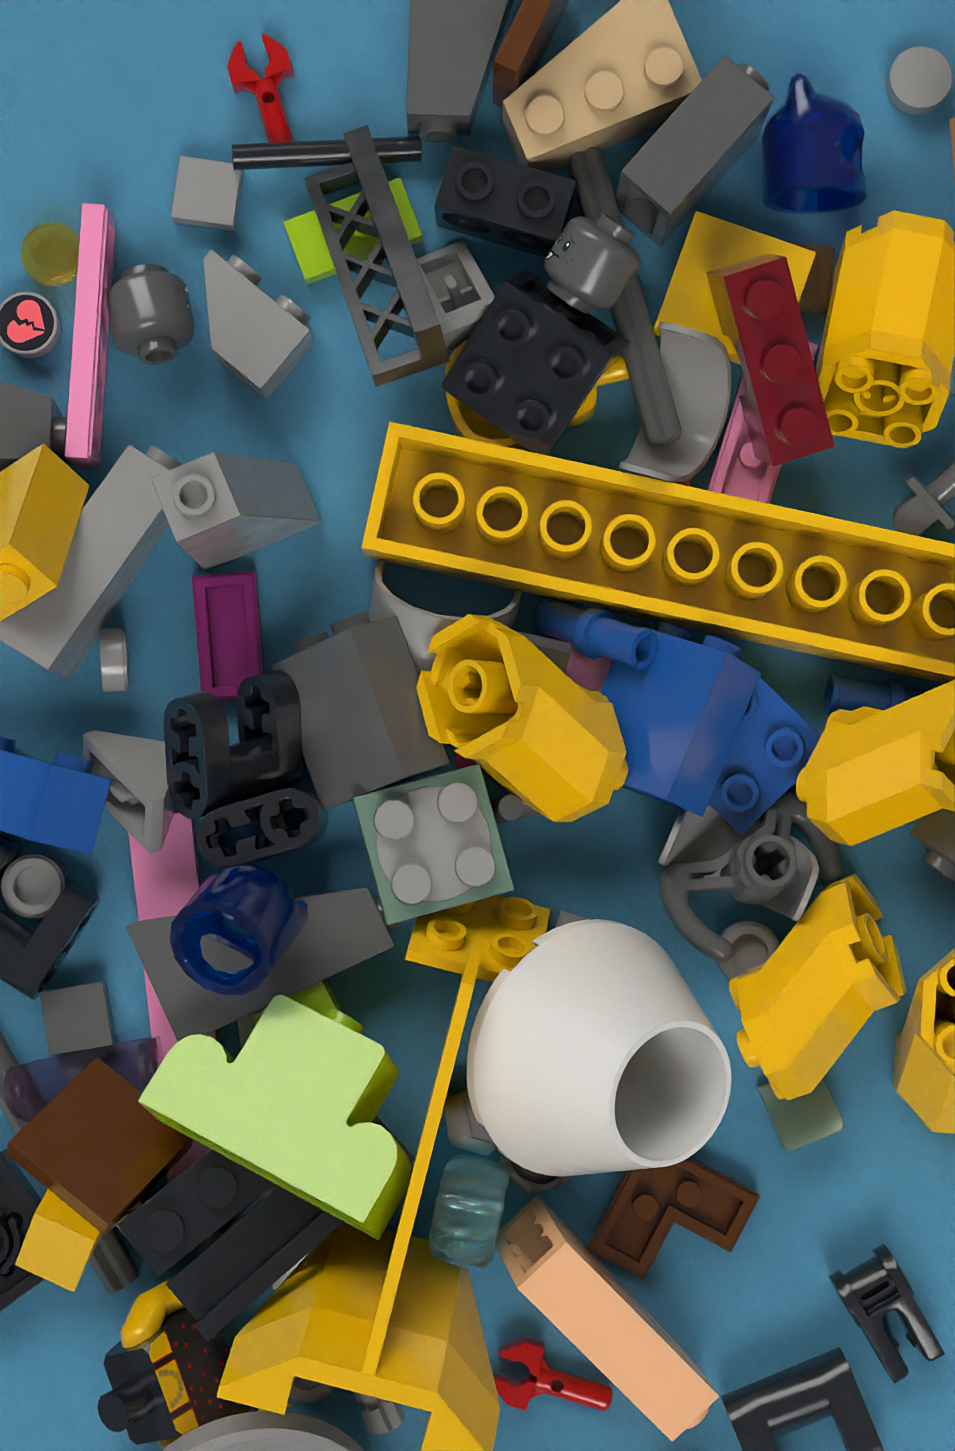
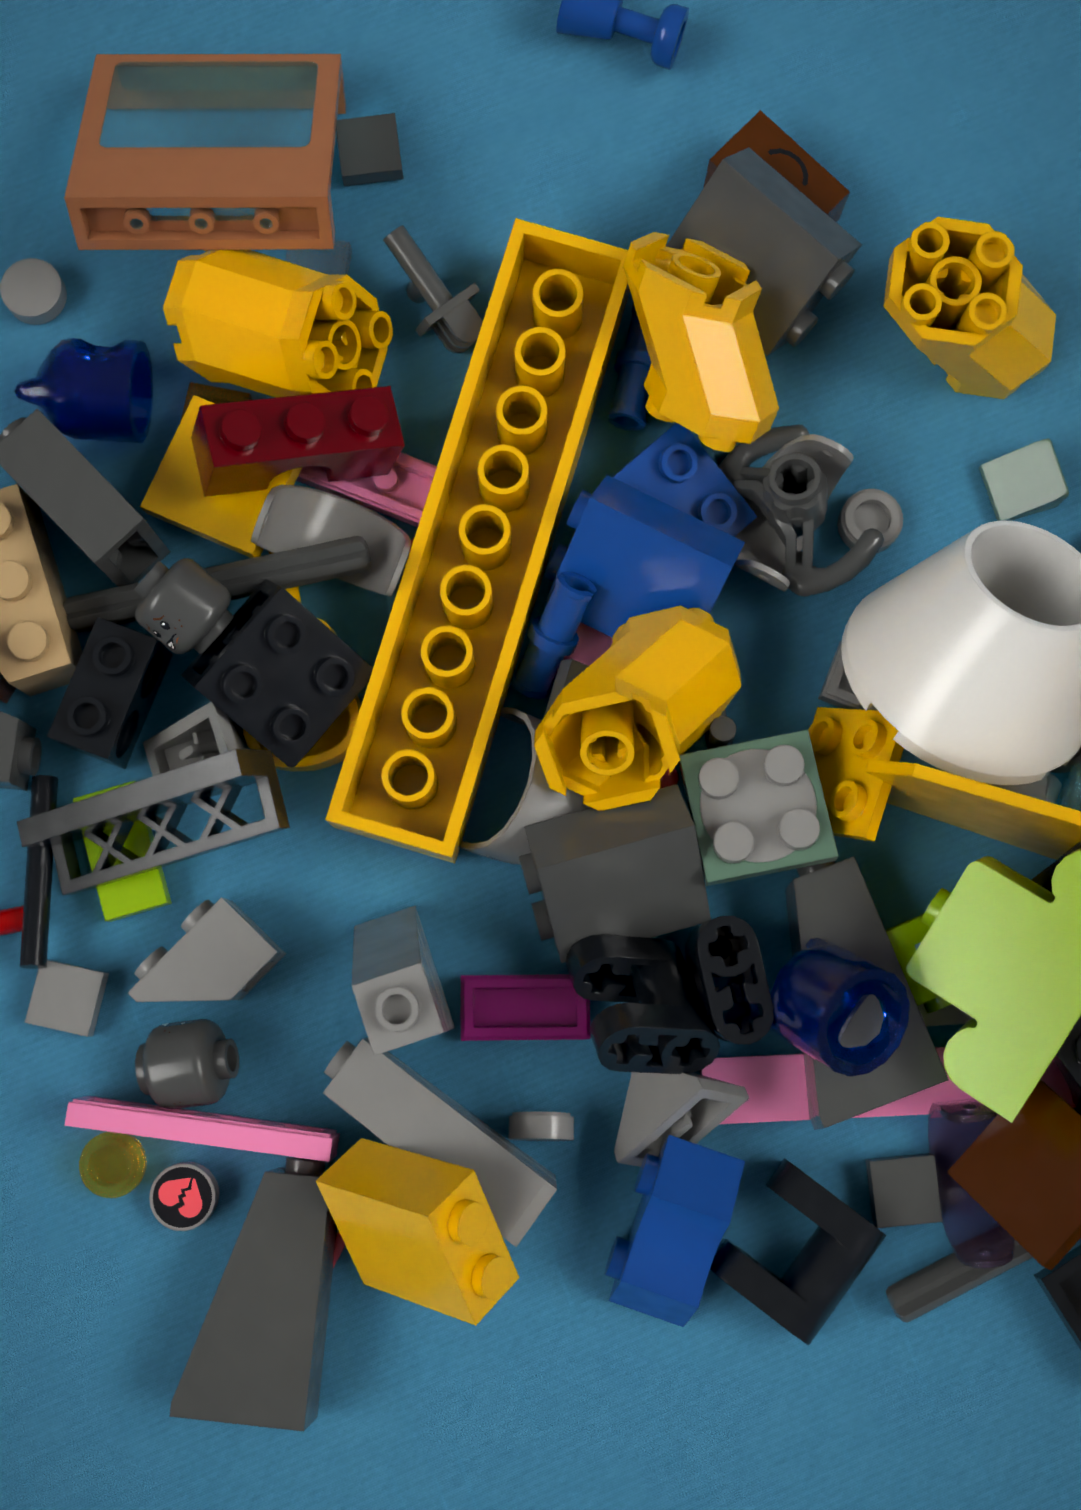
camera: 90 degrees left, 5 degrees down
(33, 884) = (766, 1226): light grey tile -> none
(817, 989) = (920, 450): yellow brick -> none

